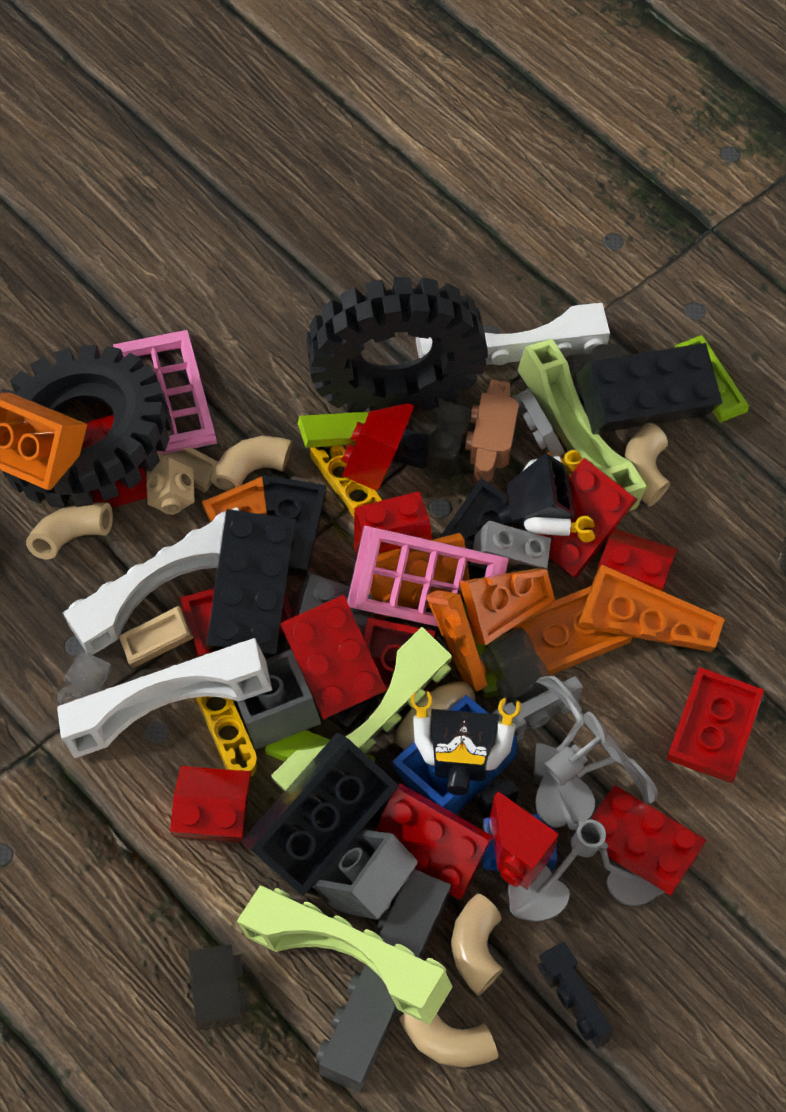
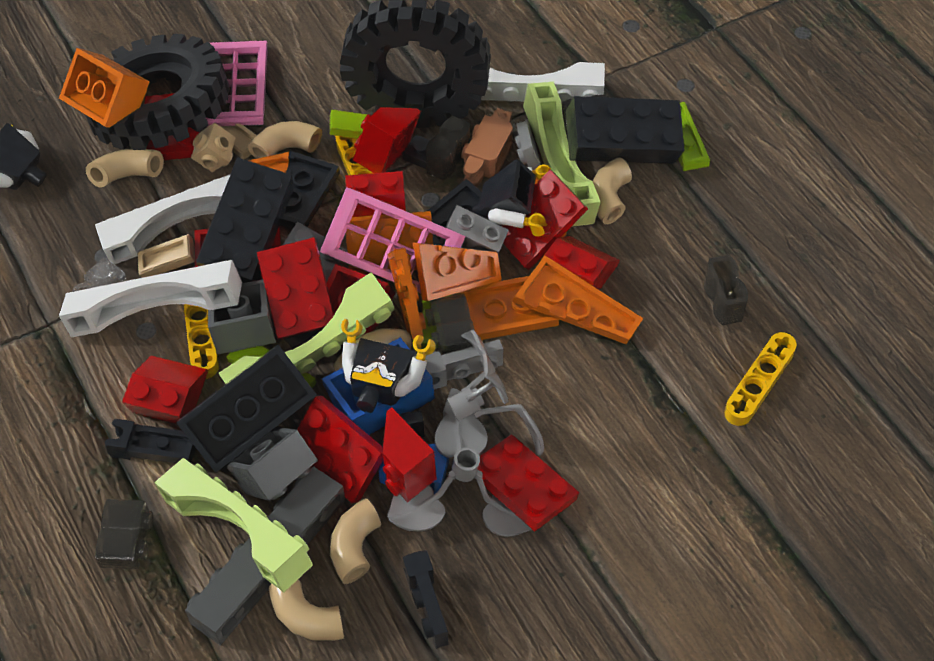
camera: 15 degrees right, 5 degrees down
(211, 872) = (149, 443): none -> black plate
(715, 725) = (612, 401): red plate -> none

